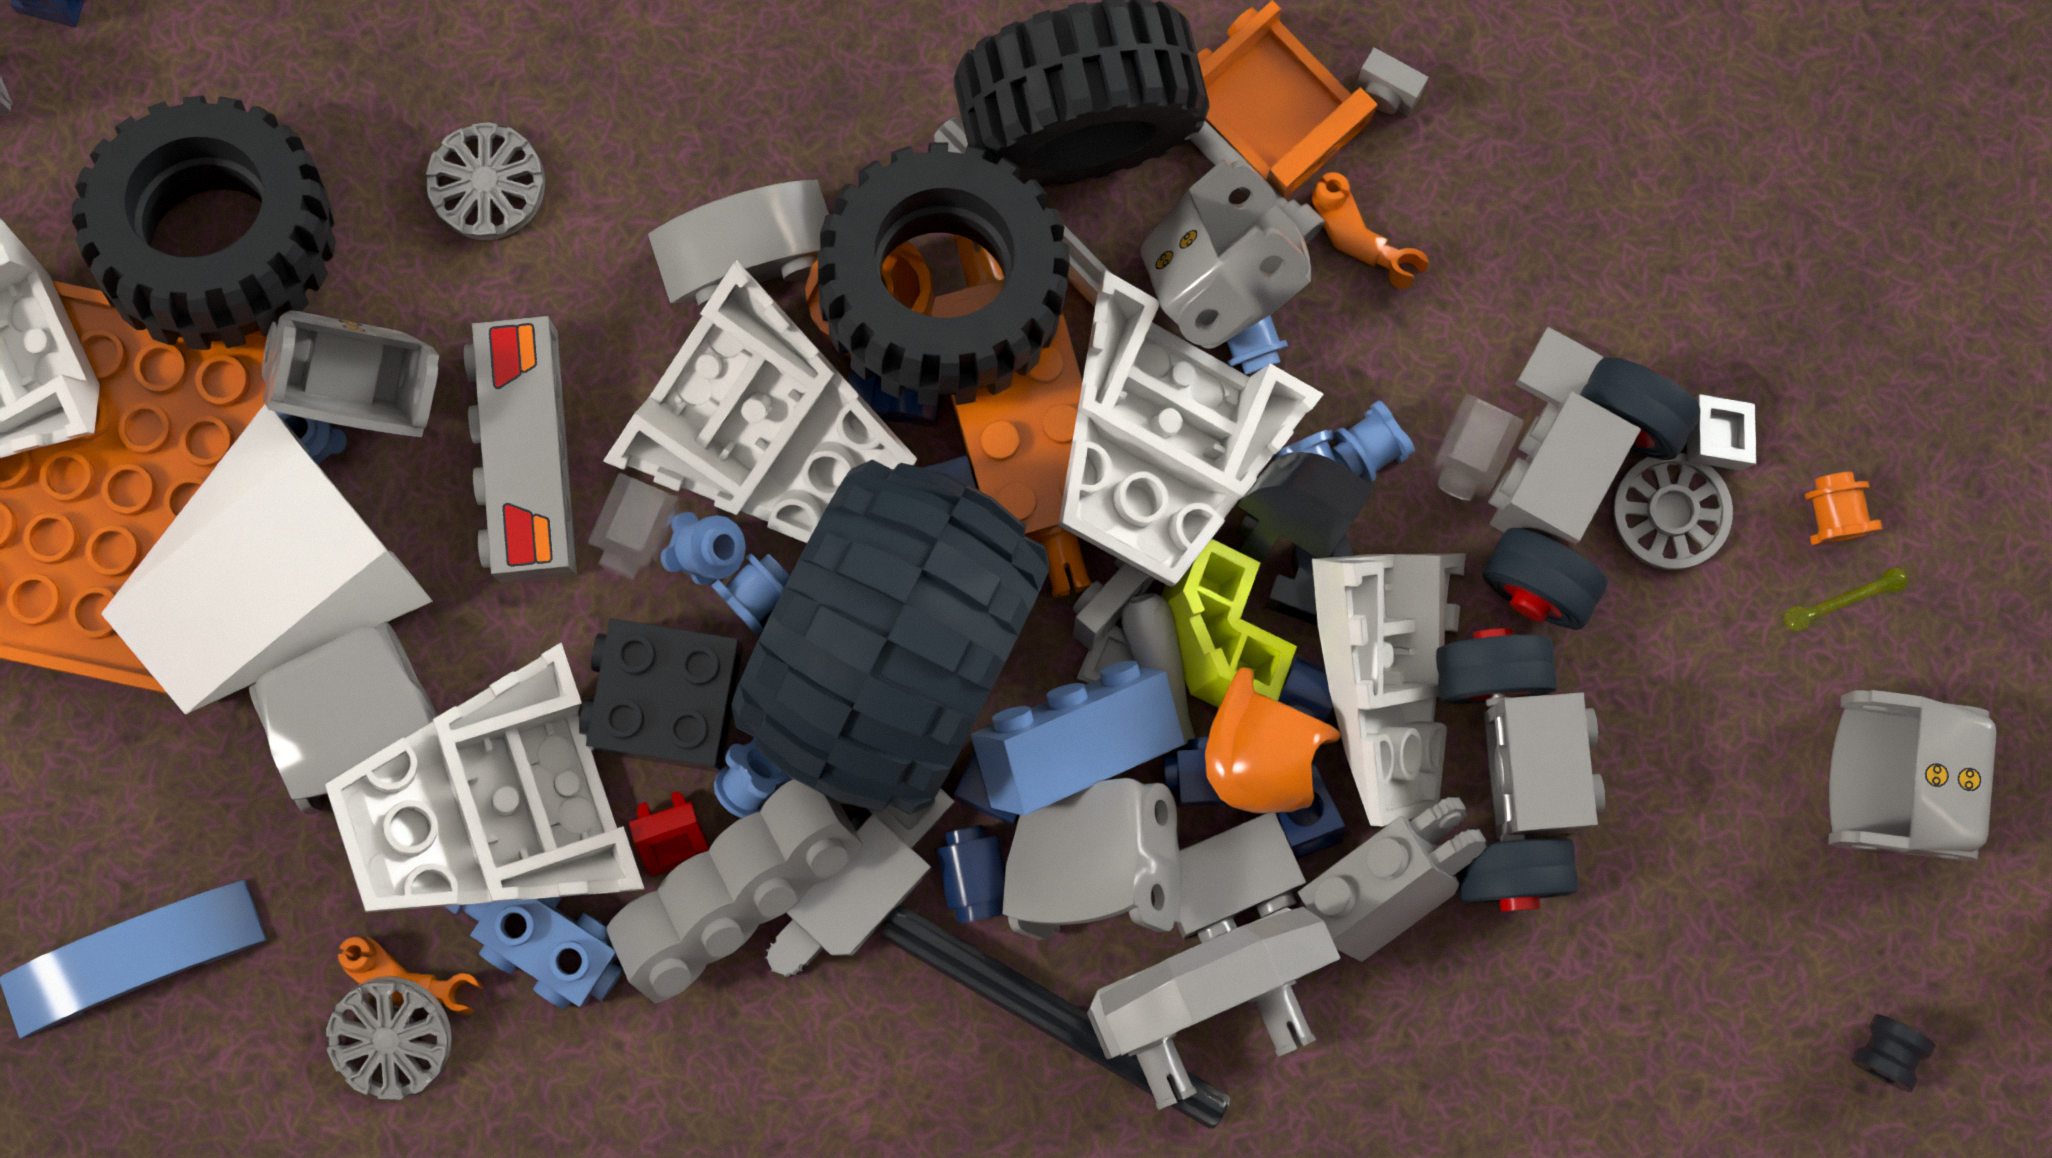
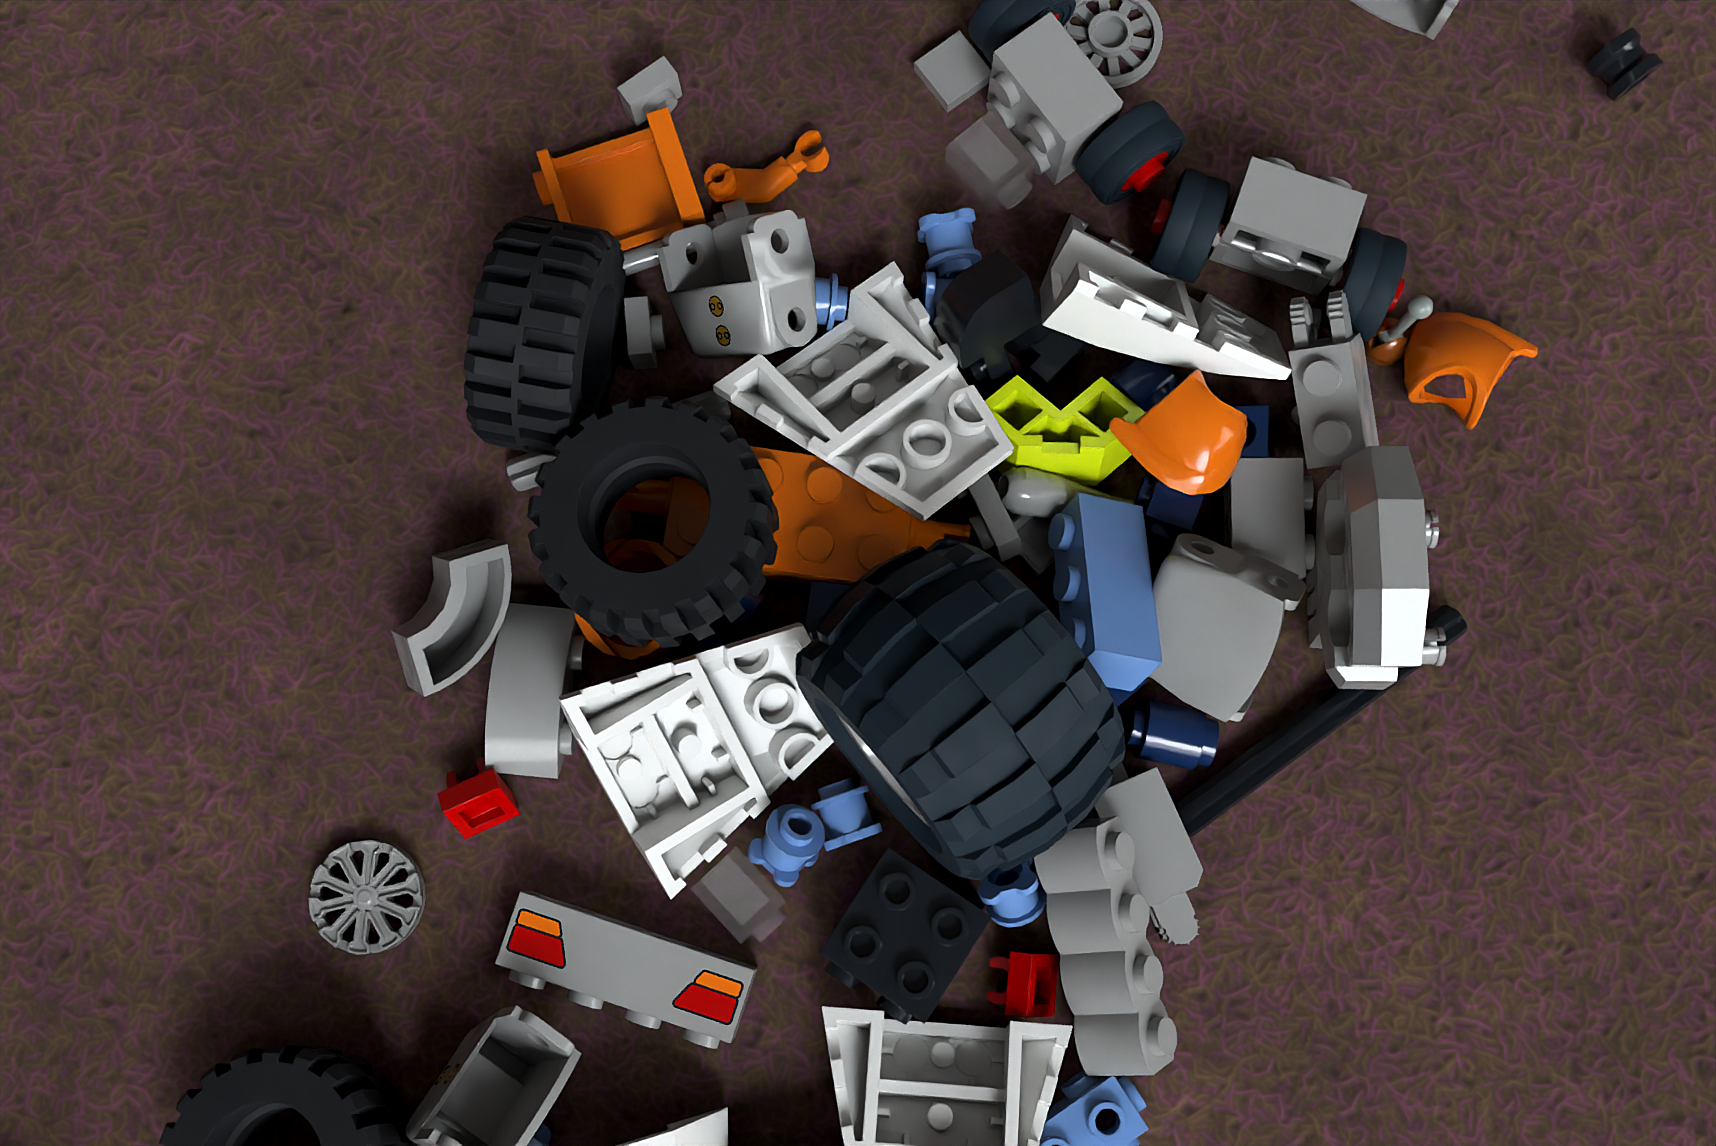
camera: 60 degrees left, 0 degrees up
(617, 240) = (478, 801): none -> red tile
(783, 140) = (459, 616): none -> light grey brick
(1142, 186) = (644, 332): none -> light grey plate
(1486, 923) = (1395, 333): none -> hinge
(1500, 1007) = (1462, 346): none -> orange piece

